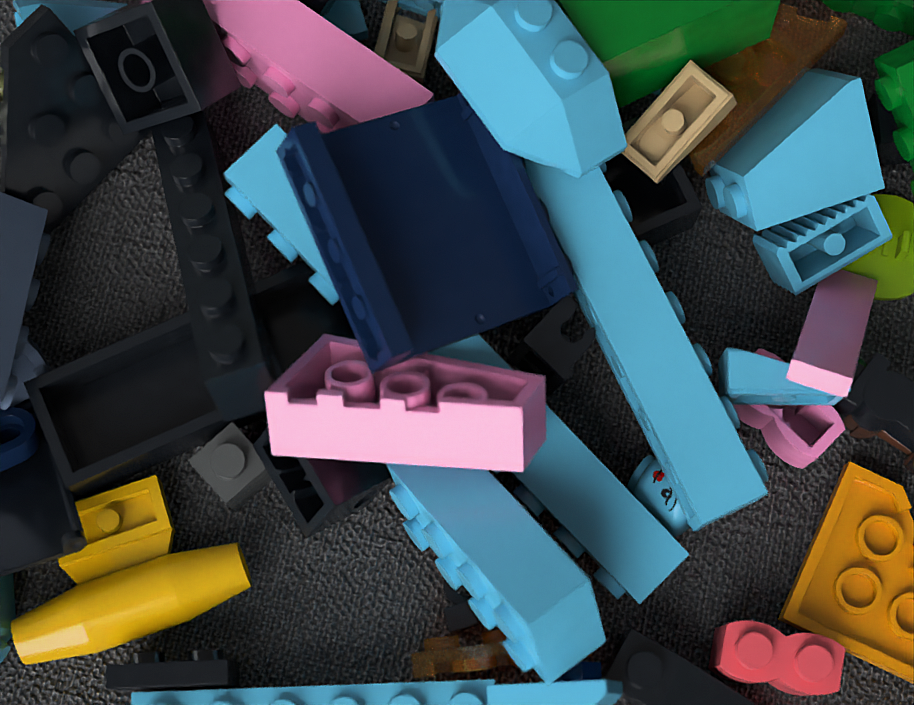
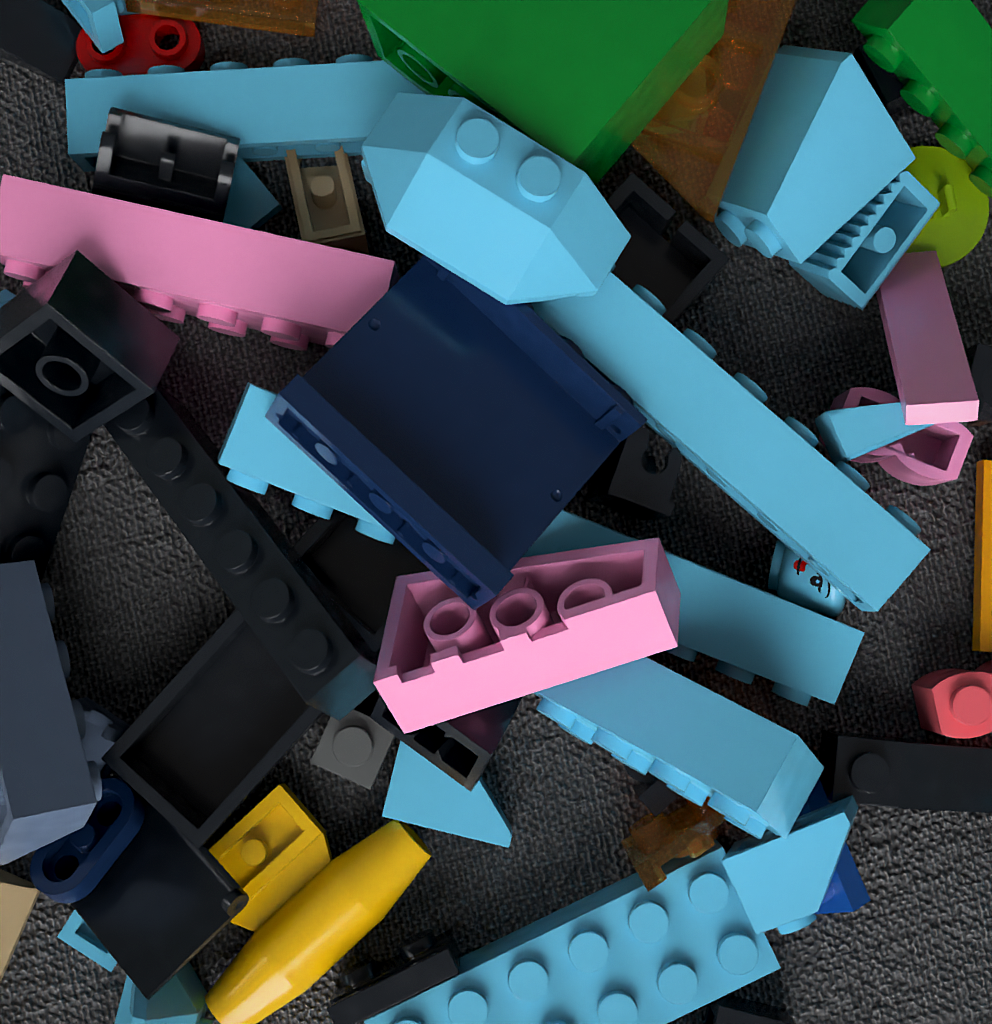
camera: 25 degrees left, 10 degrees up
(277, 540) = (432, 799): none -> medium azure slope
(677, 121) = (666, 178): tan slope -> none

